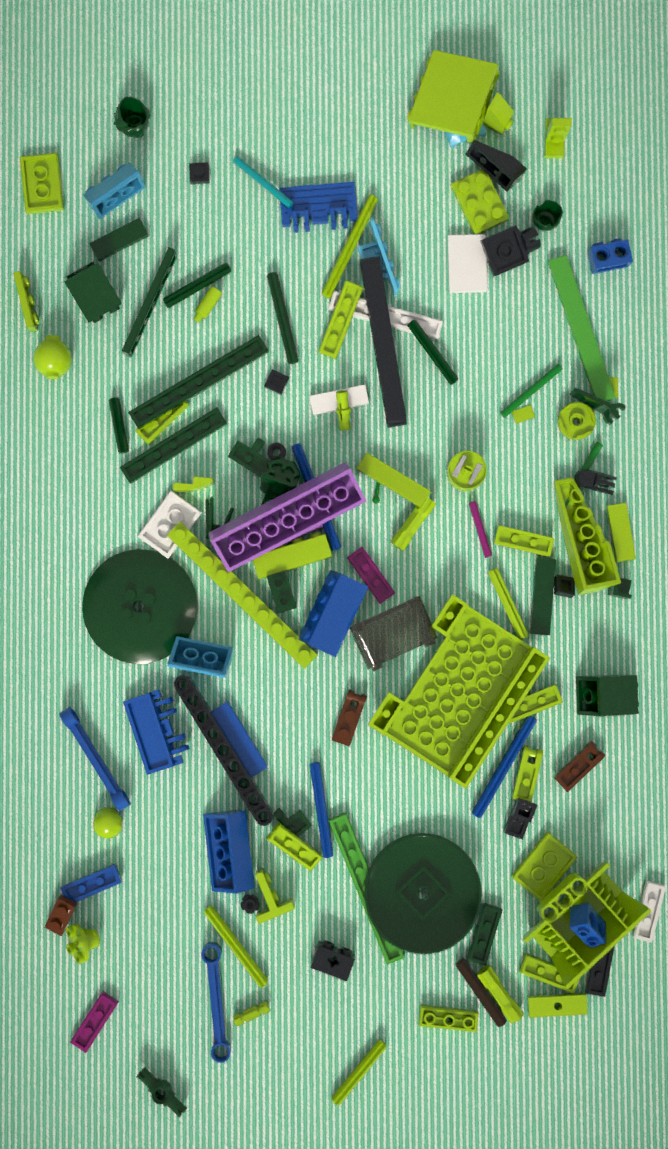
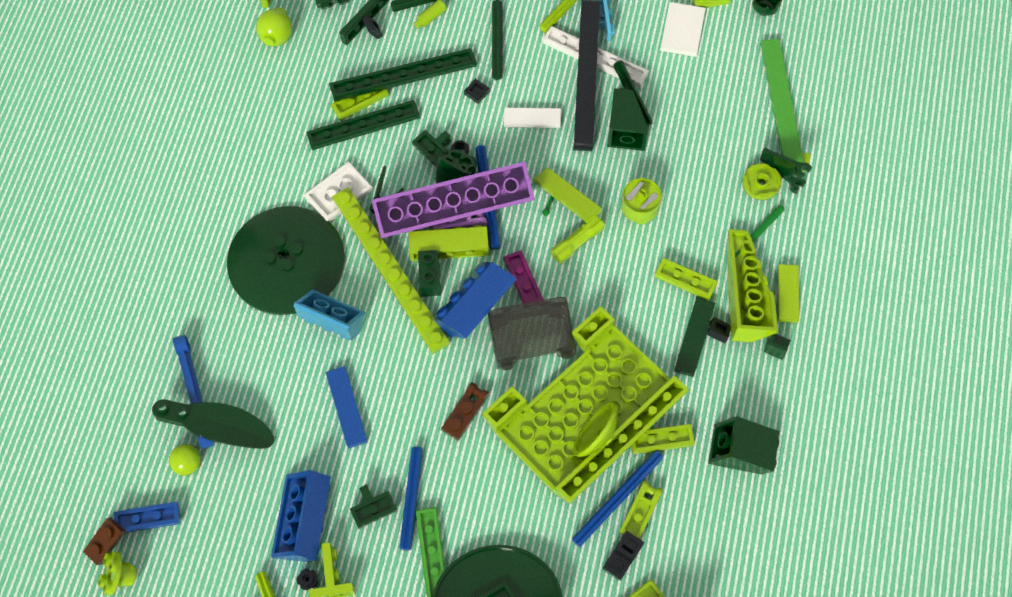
camera: 20 degrees right, 20 degrees down
(118, 425) = (316, 99): dark green axle -> none
(127, 787) = (216, 423): none -> dark green plant
(152, 334) = (372, 27): none -> black tile
(152, 732) = (260, 373): blue hinge -> none
(198, 484) = (375, 161): lime slope -> none
(214, 743) = (330, 420): black beam -> none
(294, 846) = (371, 527): lime tile -> none
(341, 319) = (551, 50): lime tile -> none
(343, 410) = (533, 124): lime pin -> none
(433, 388) = (627, 122): none -> dark green slope
(475, 720) = (597, 431): none -> lime dish
(480, 529) = (644, 260): magenta bar -> none
(508, 603) = (657, 335): lime axle -> none
(509, 248) = (725, 22): black plate -> none
(523, 414) = (710, 167): lime sticker -> none
(531, 390) = (721, 147): green bar -> none
(579, 766) = (698, 516): reddish brown plate -> none
(591, 479) = (770, 238): black arm -> none
(611, 260) = (821, 51): blue brick -> none

